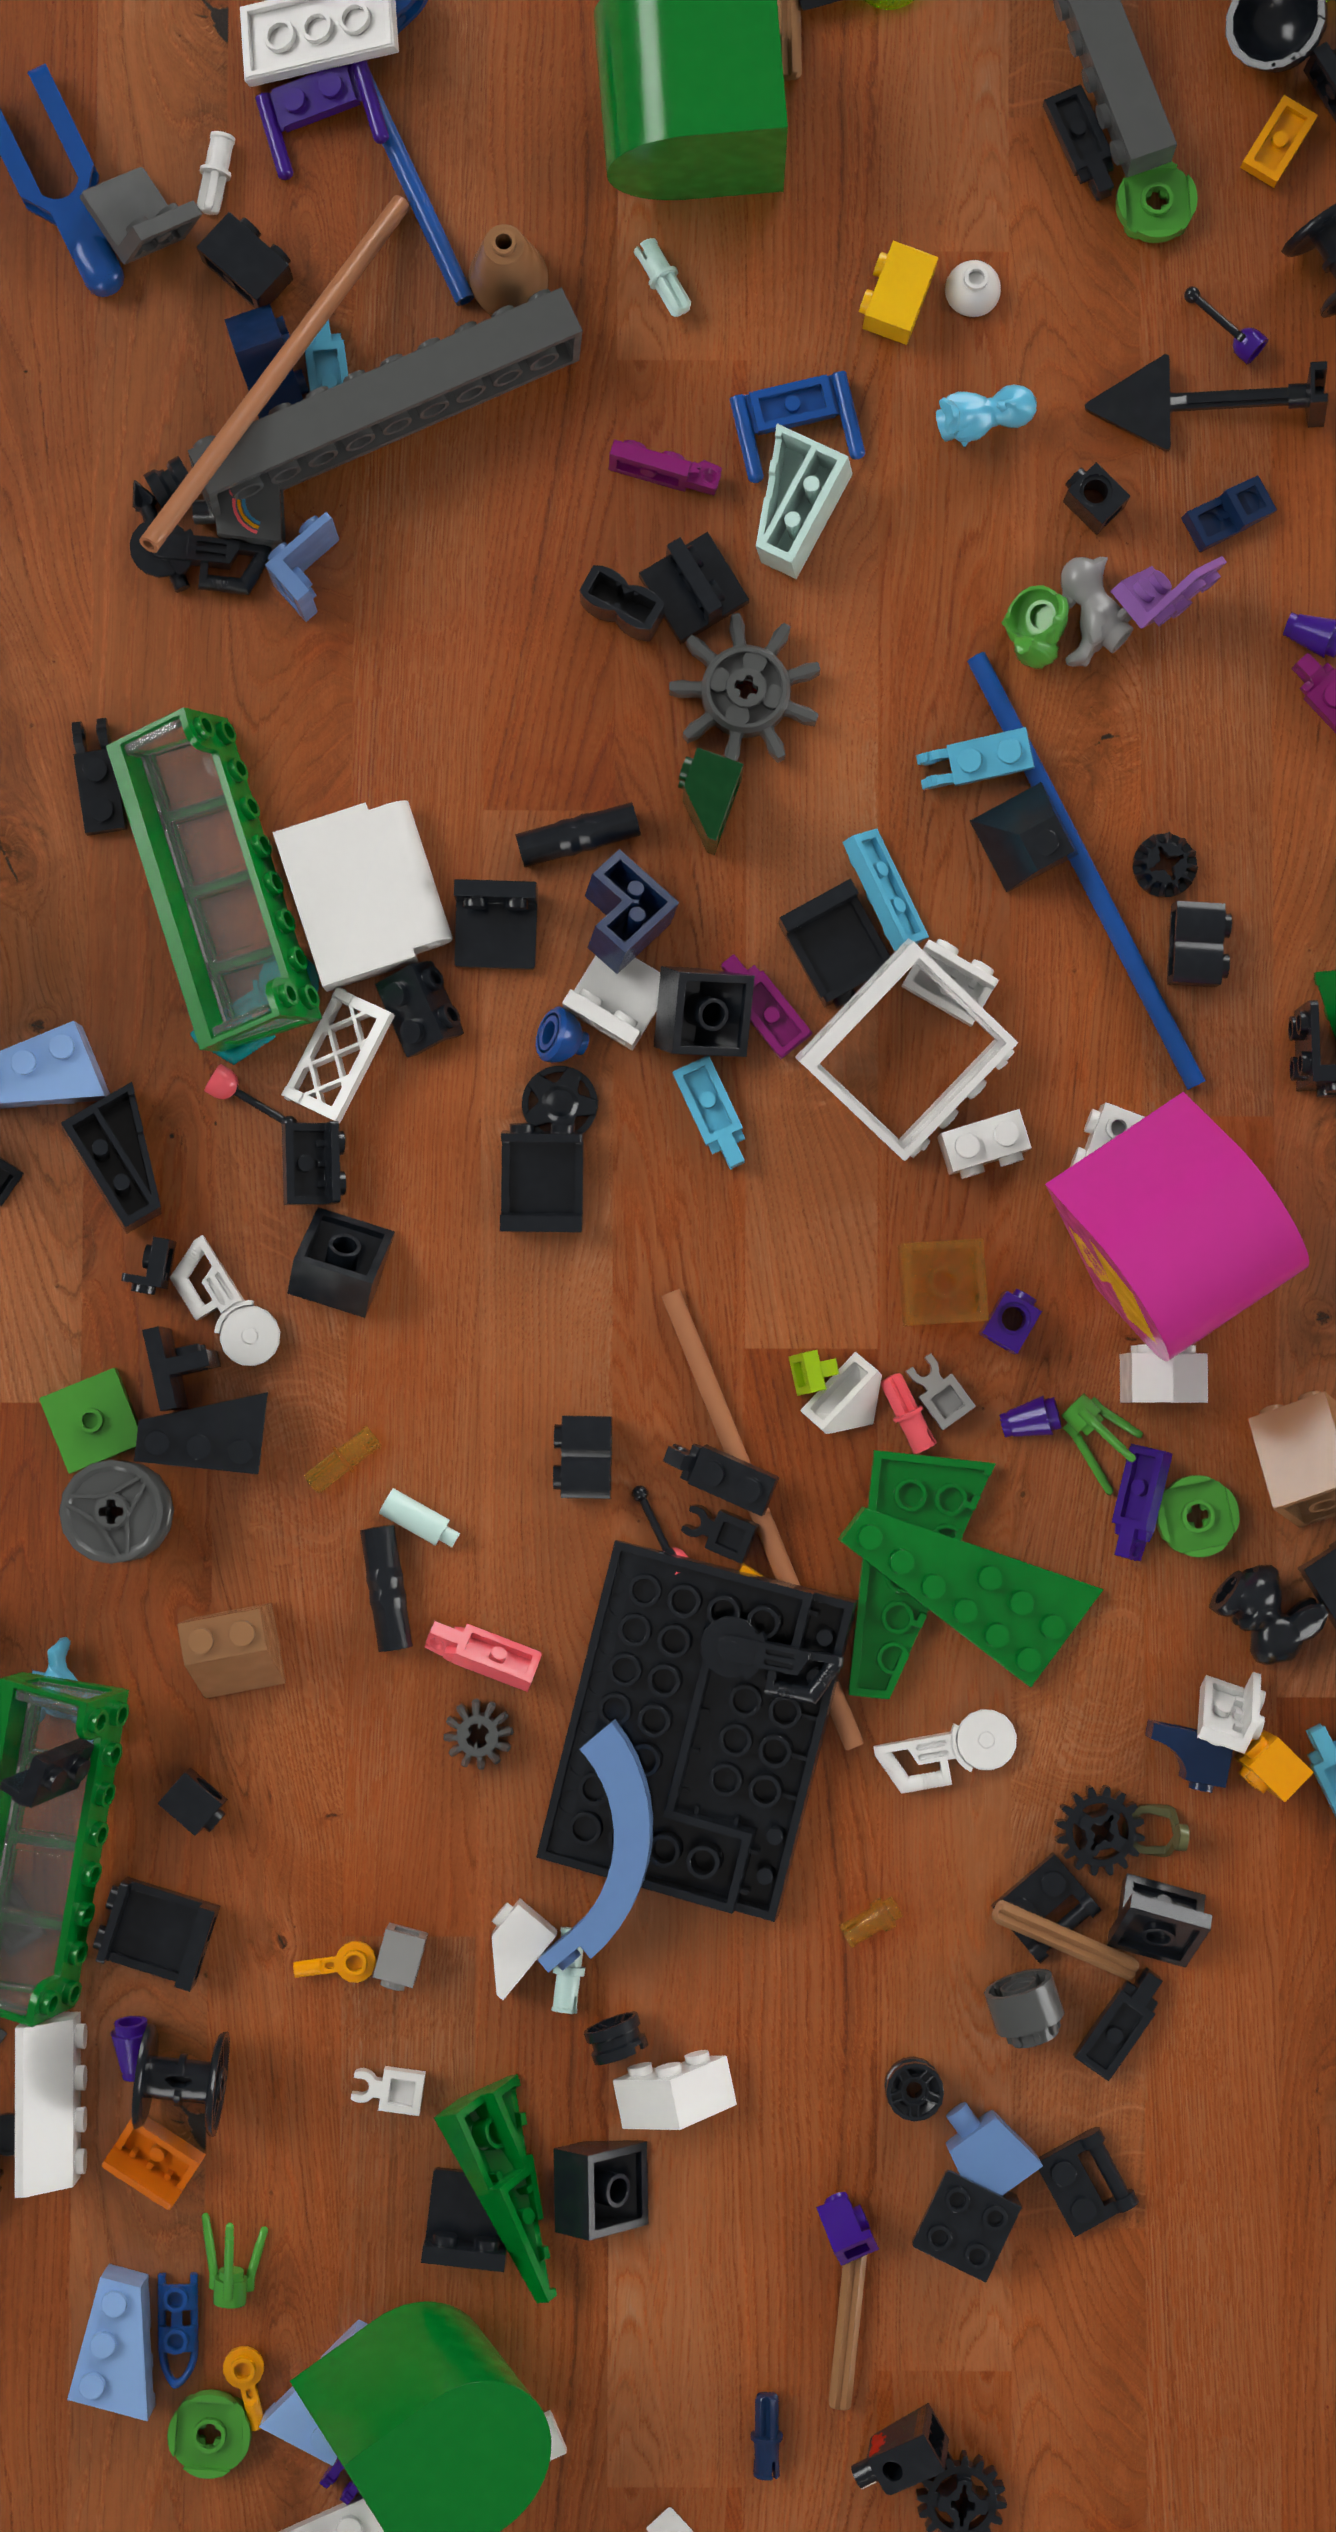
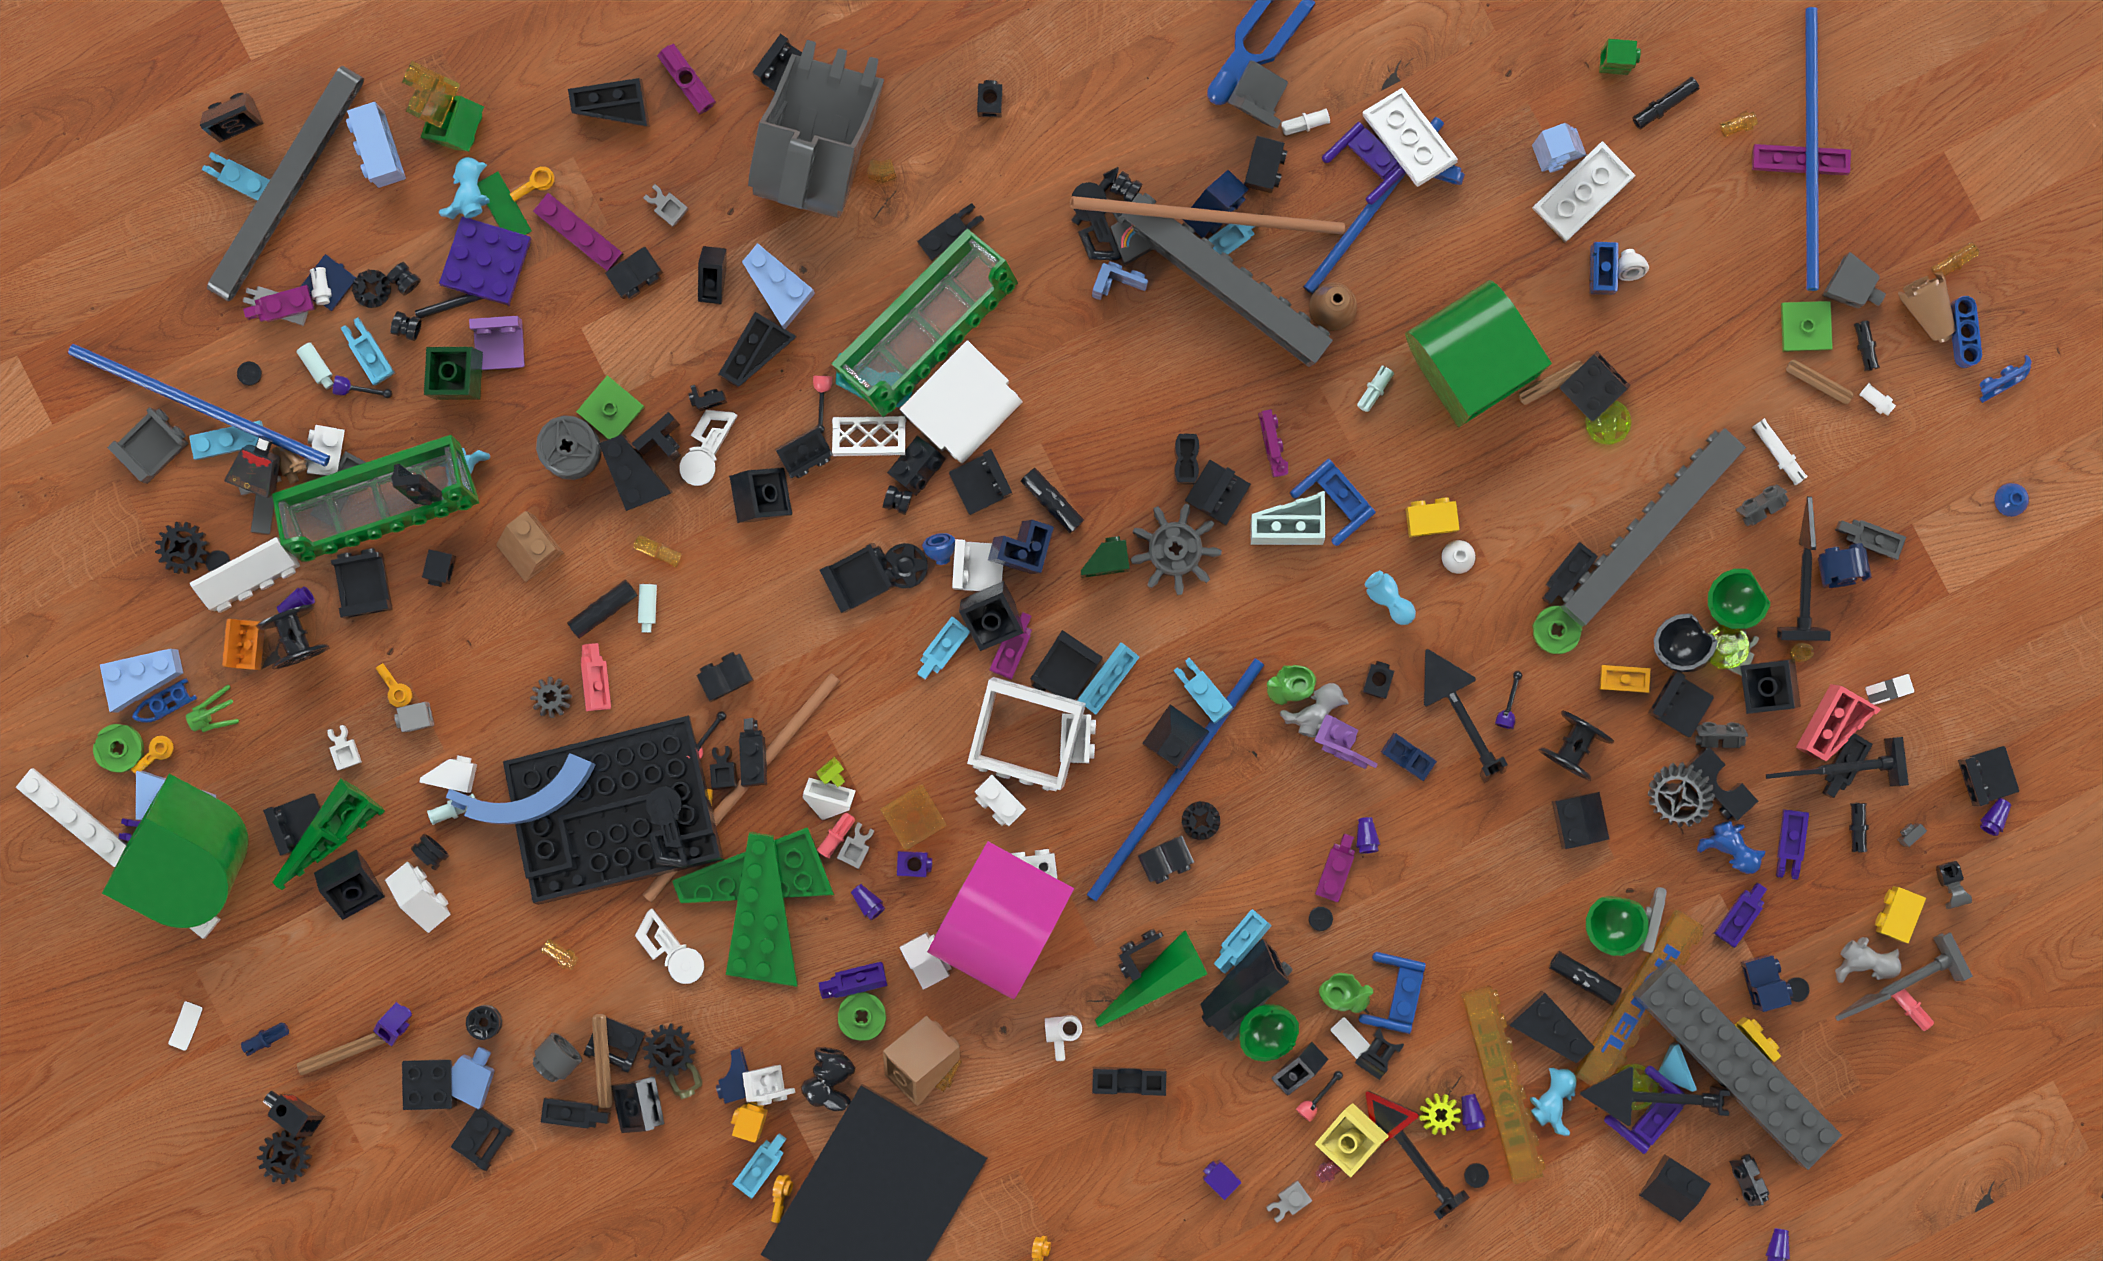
camera: 70 degrees right, 0 degrees up
(456, 1062) = (897, 500): none -> black wheel
(1086, 1416) = (883, 929): bright green plant -> none

